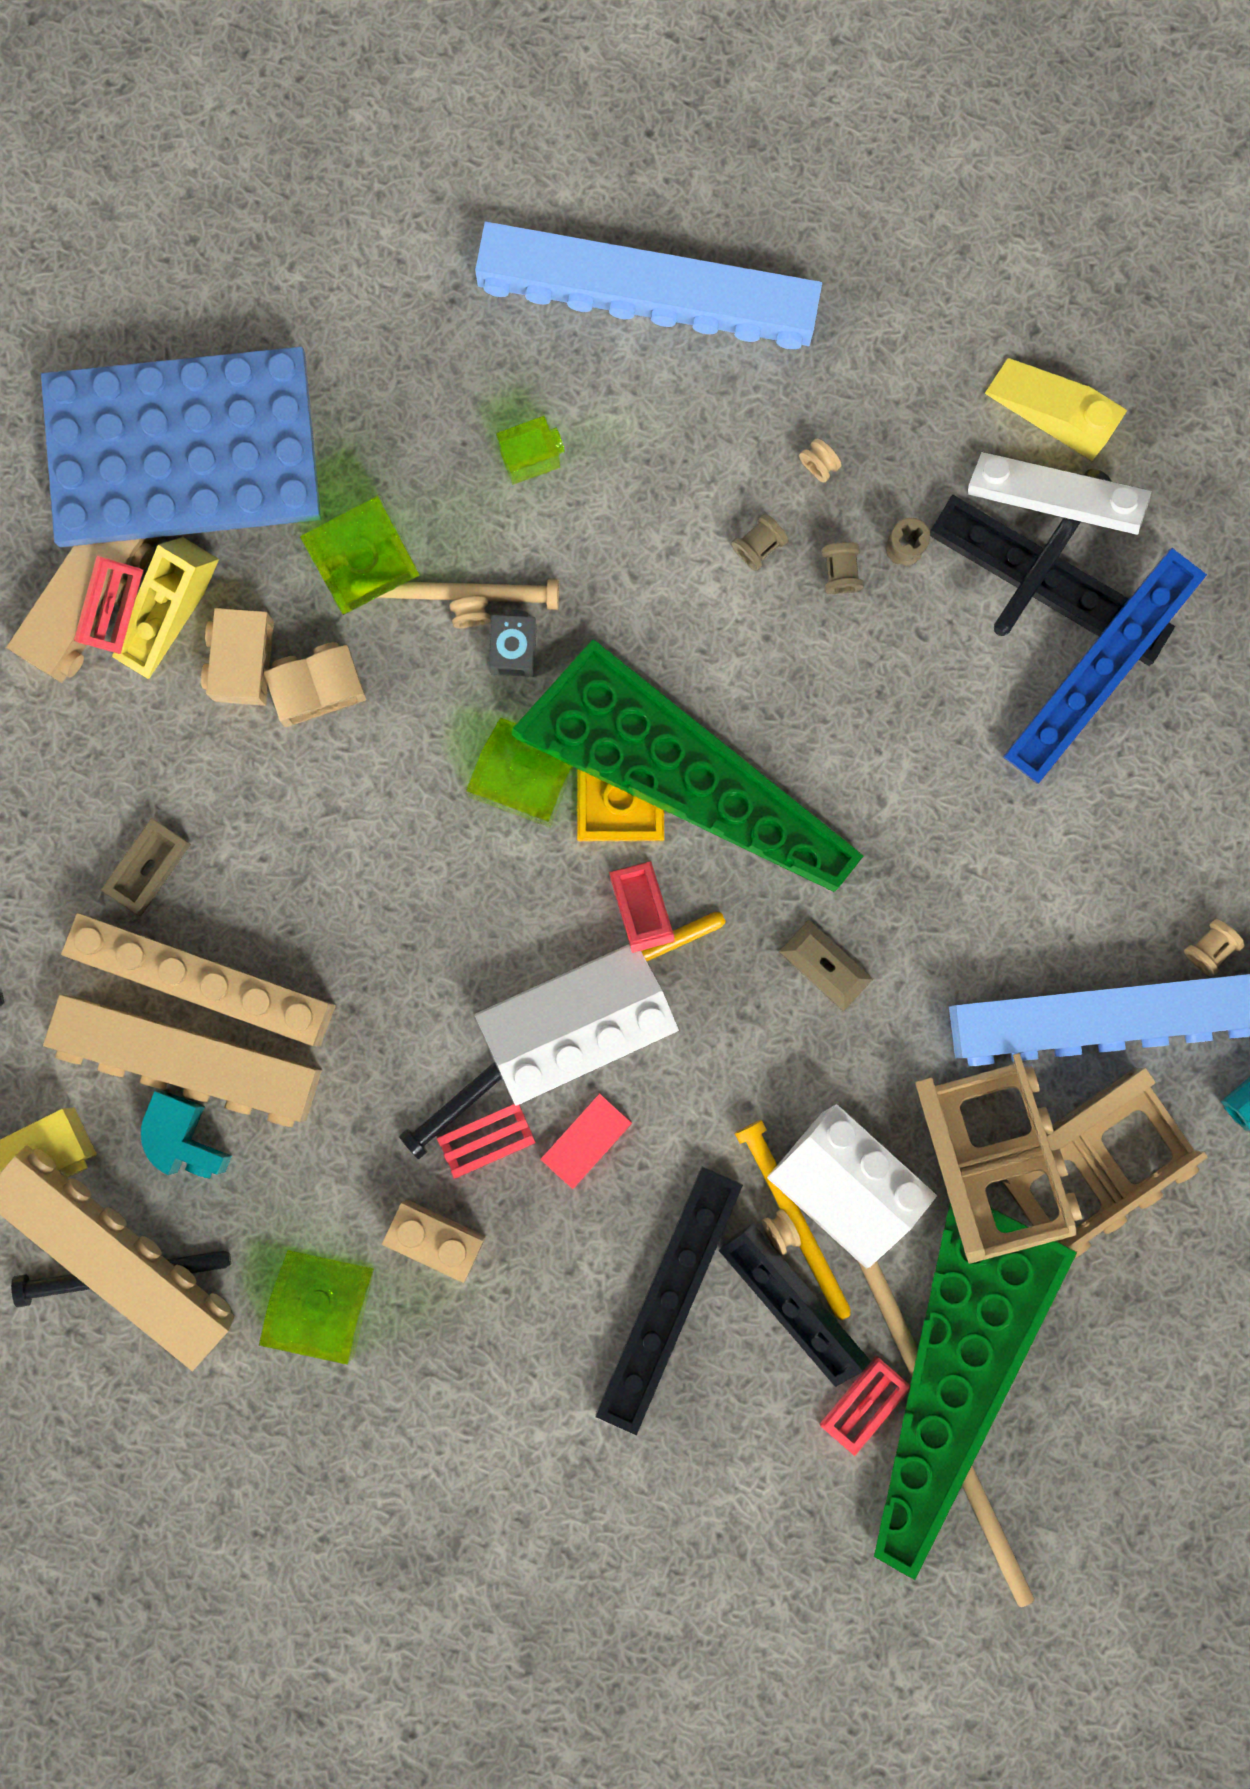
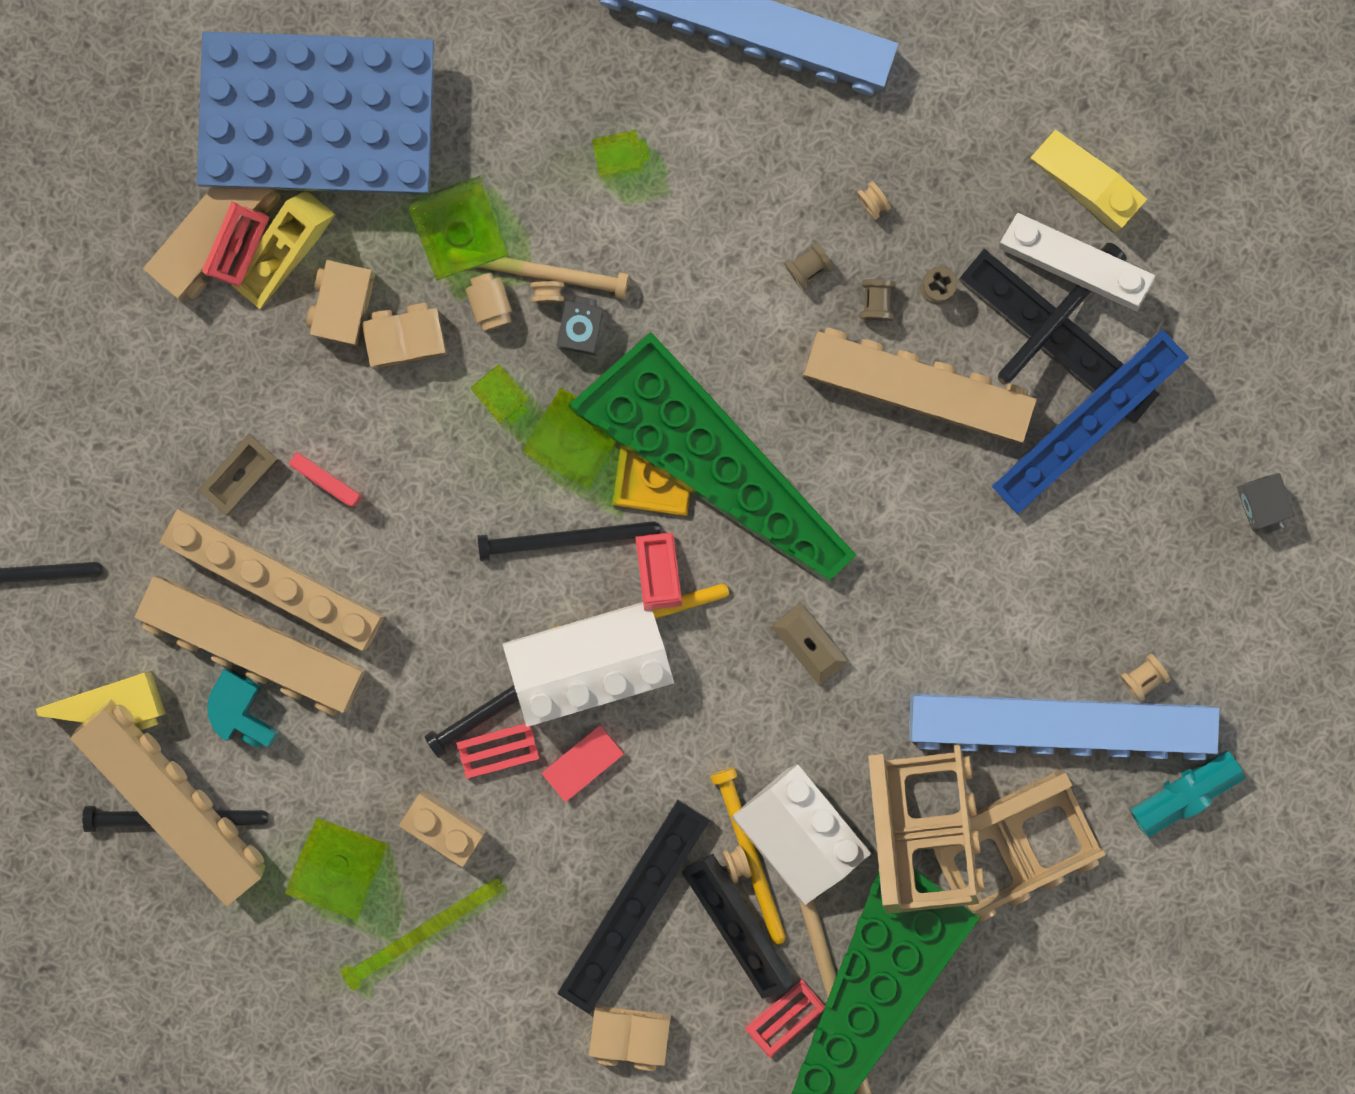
camera: 15 degrees right, 5 degrees up
(246, 857) = (325, 480): none -> coral tile
(354, 1430) = (354, 975): none -> clear neon green bar
(406, 632) = (489, 302): none -> tan brick
(434, 734) = (501, 396): none -> clear neon green brick
(527, 886) = (564, 538): none -> black bar
(687, 1455) = (629, 1037): none -> tan brick
(905, 657) = (919, 387): none -> tan brick

